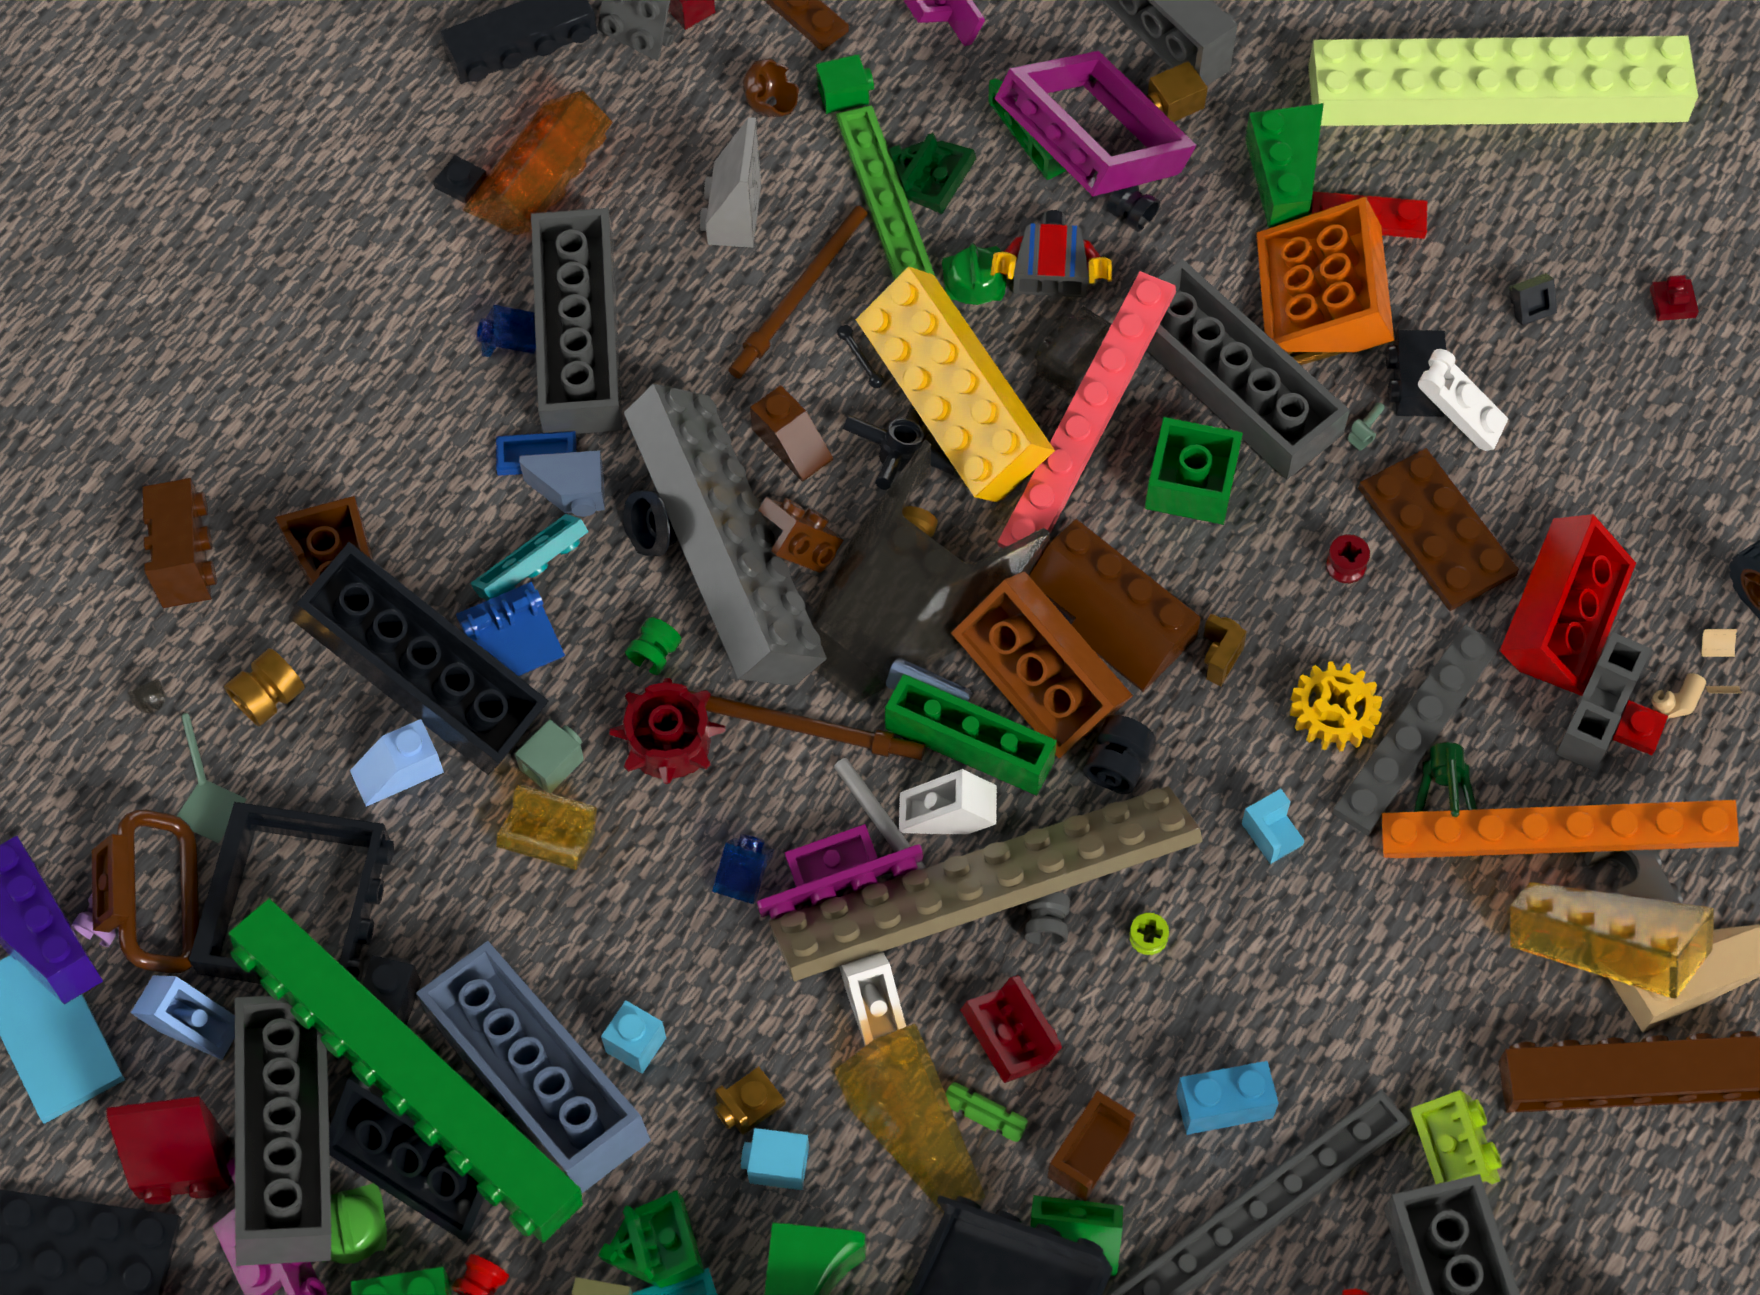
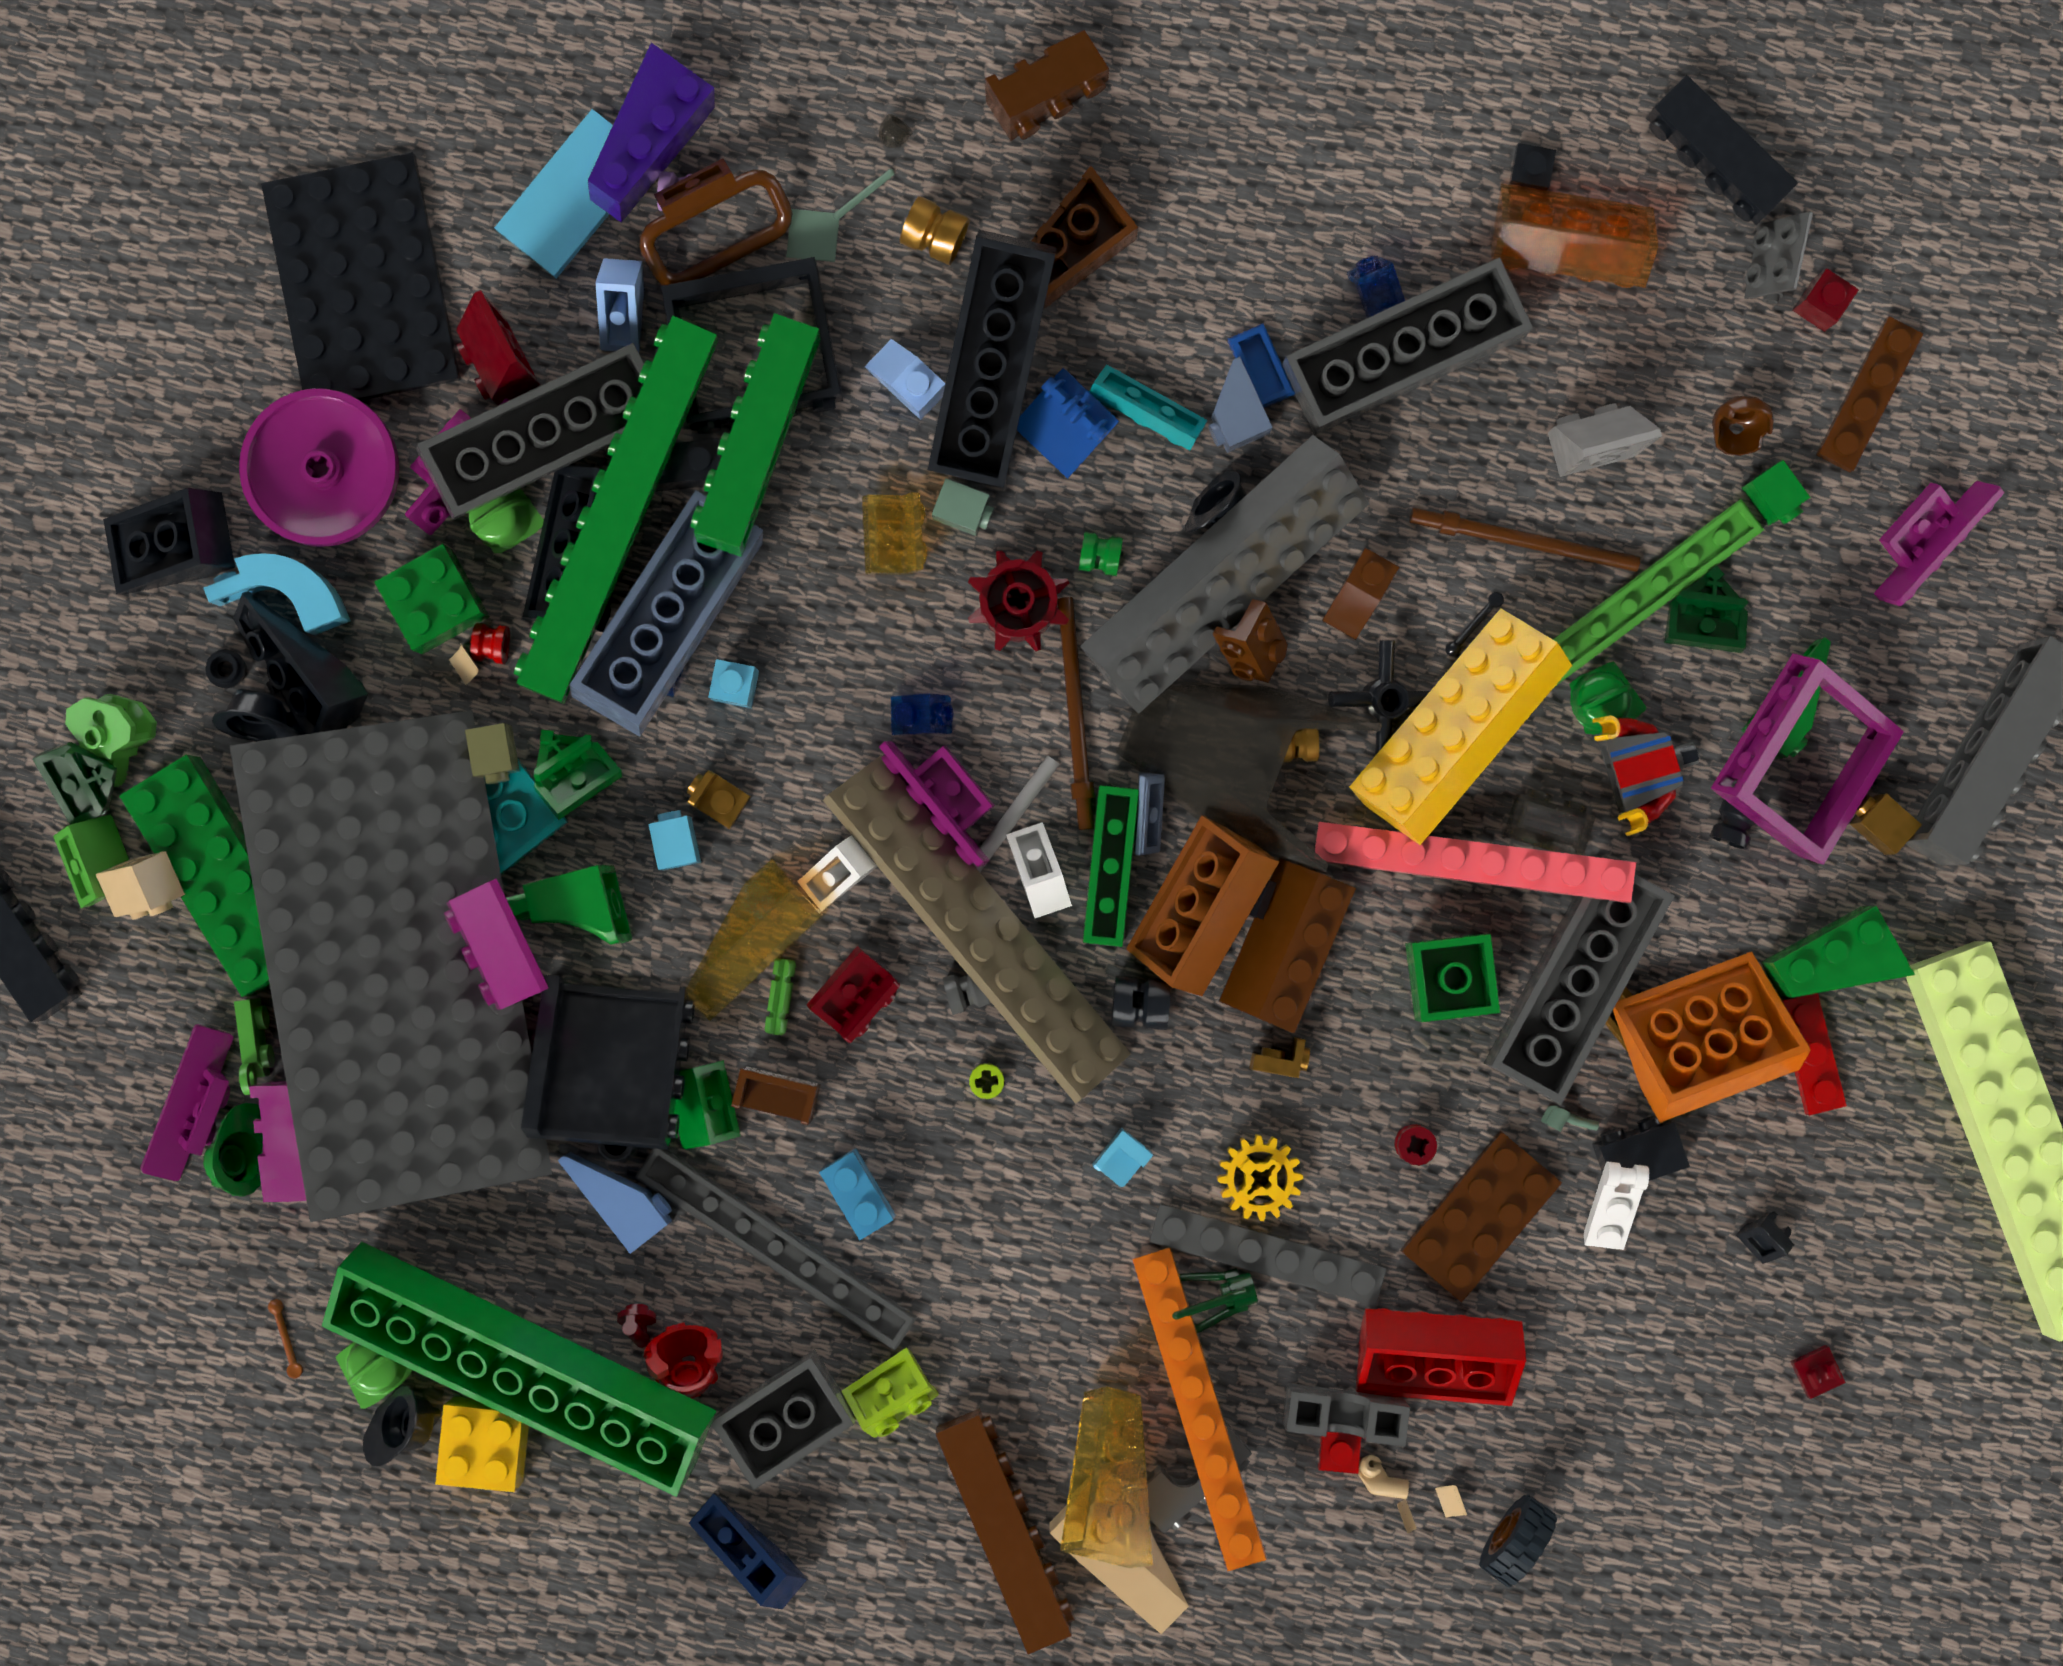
camera: 70 degrees right, 25 degrees up
(390, 906) = (756, 435): none -> green brick

